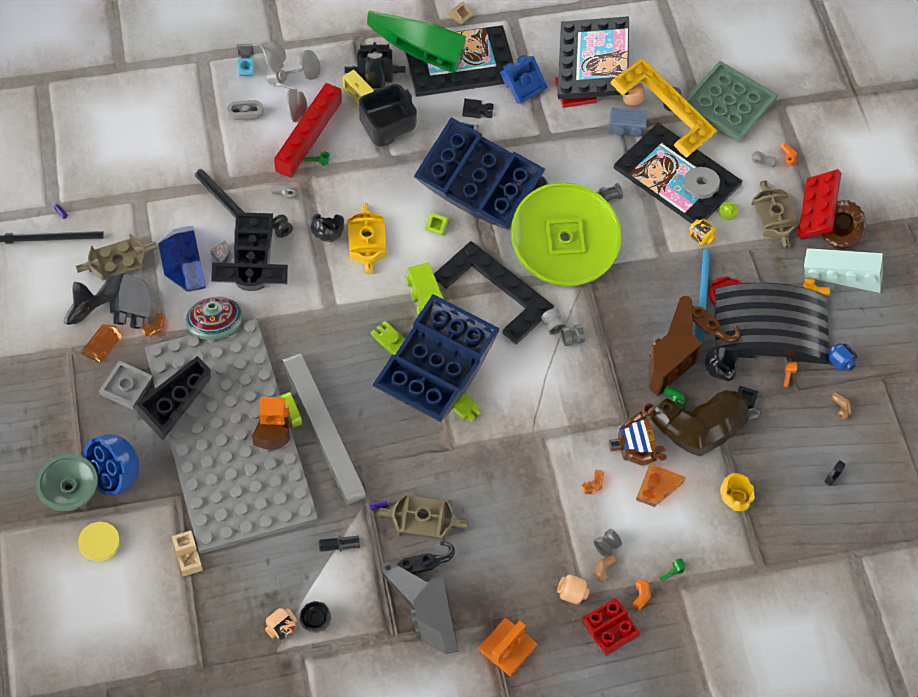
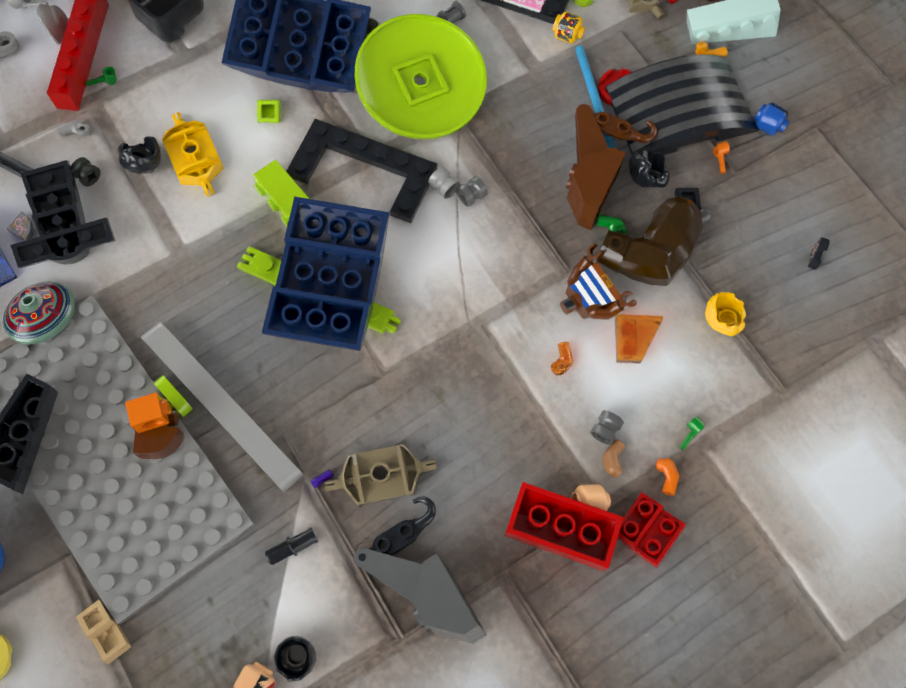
camera: 20 degrees left, 10 degrees up
(508, 646) = (541, 602): orange bracket -> none
(544, 597) = (564, 526): none -> red slope
(845, 406) = (795, 172): medium nougat arm -> none

